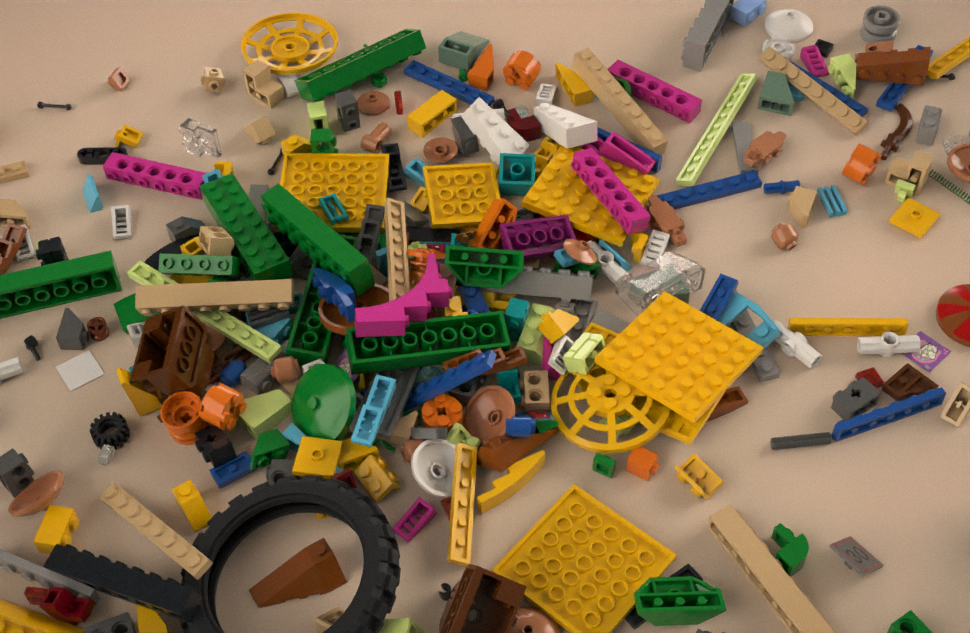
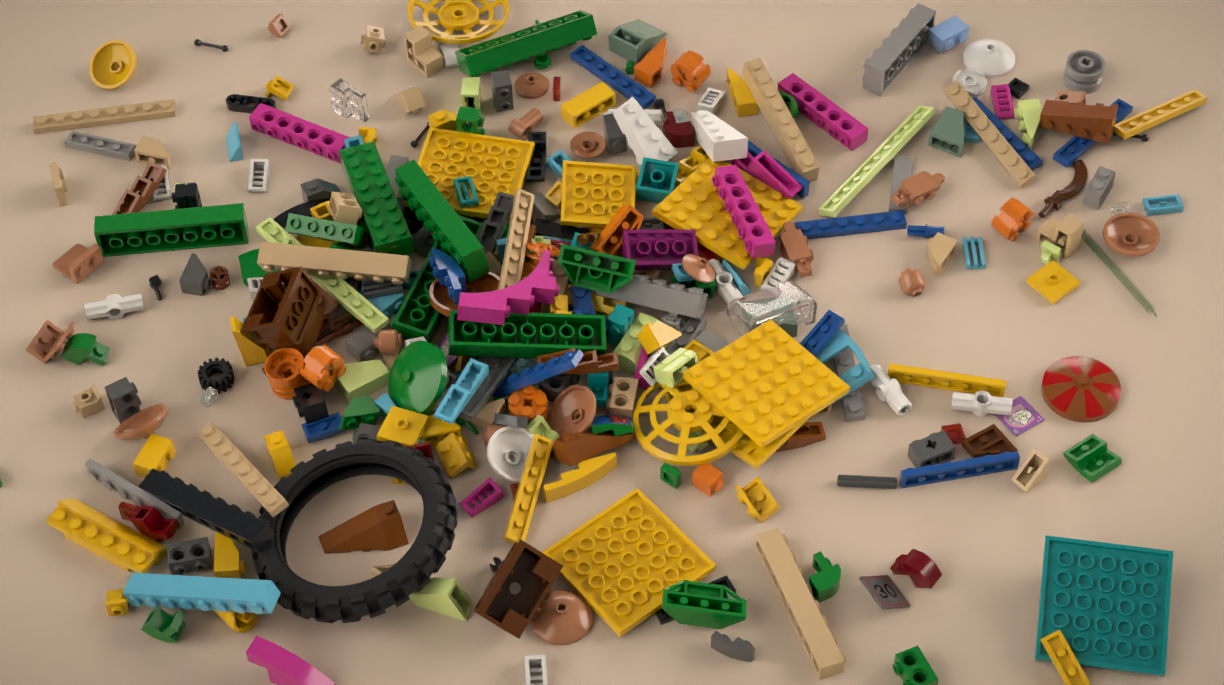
camera: 10 degrees right, 0 degrees up
(79, 370) = (197, 315): white sticker -> none
(231, 373) = (337, 338): blue brick -> none
(520, 427) = (595, 426): blue brick -> none
(883, 523) = (919, 567): none -> dark red brick

